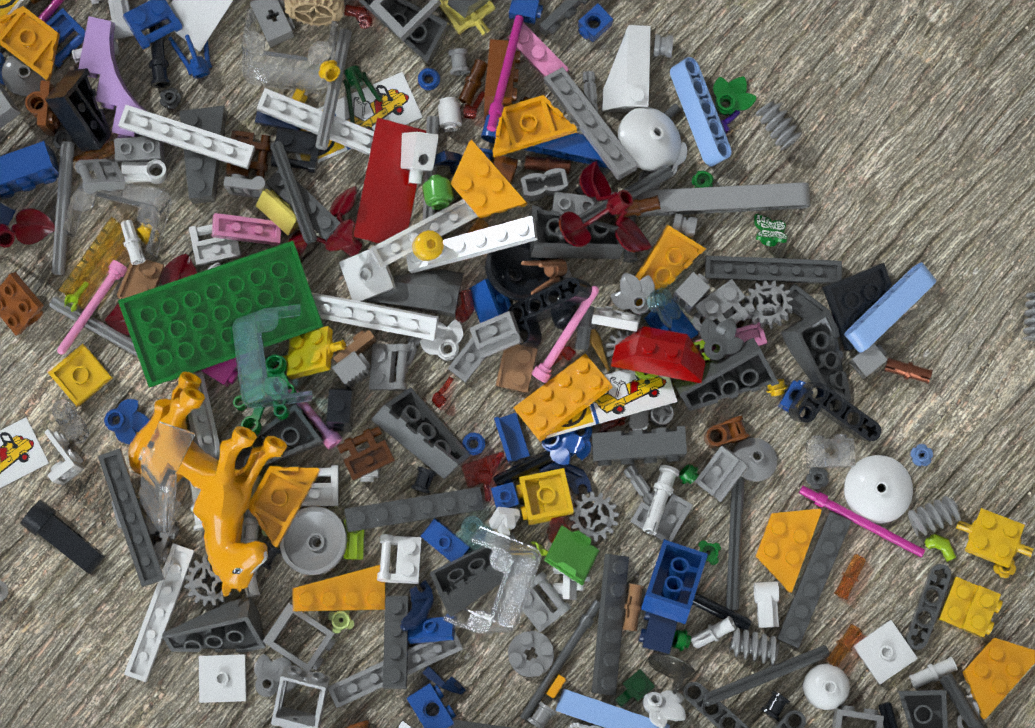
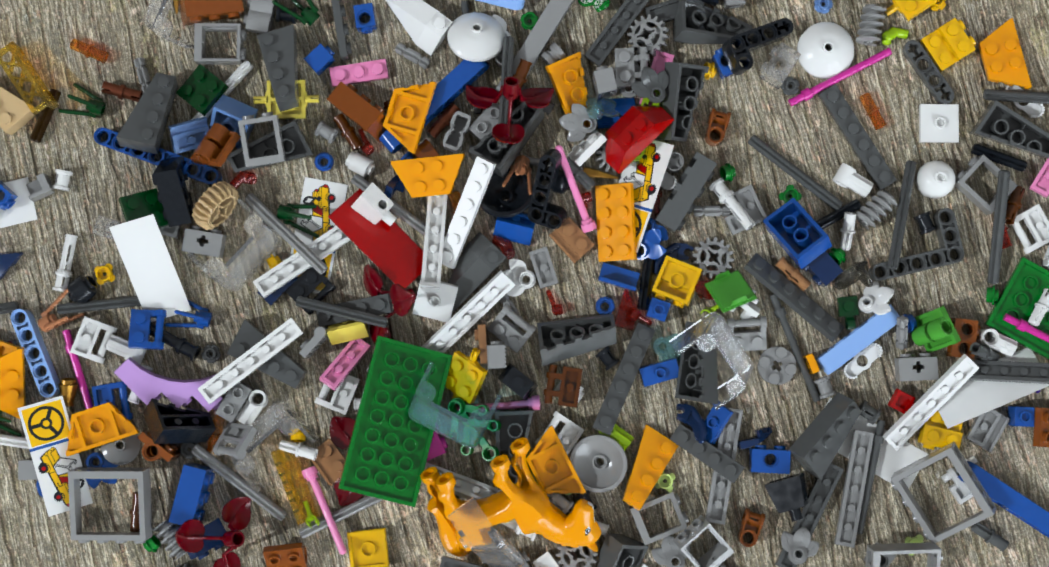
camera: 55 degrees left, 5 degrees up
(130, 420) = (425, 535): blue plate -> none
(263, 148) = (278, 319): reddish brown plate -> none
(329, 70) = (272, 227): yellow plate -> none
(407, 559) = (654, 406): white plate -> none
(428, 245) = (447, 243): yellow head -> none
(437, 192) = (411, 210): bright green head -> none
(496, 108) = (382, 127): dark pink bar -> none
(496, 334) = (541, 238): light grey plate -> none
(504, 520) = (675, 321): white tile -> none
(590, 123) = (437, 70): light grey plate -> none
(721, 473) = (743, 149): light grey plate -> none
(758, 469) = (748, 128): light grey dish -> none
(787, 543) = (820, 138): light orange wing -> none
(844, 645) = (916, 147): clear orange axle -> none
(933, 672) = (975, 100): white pin -> none

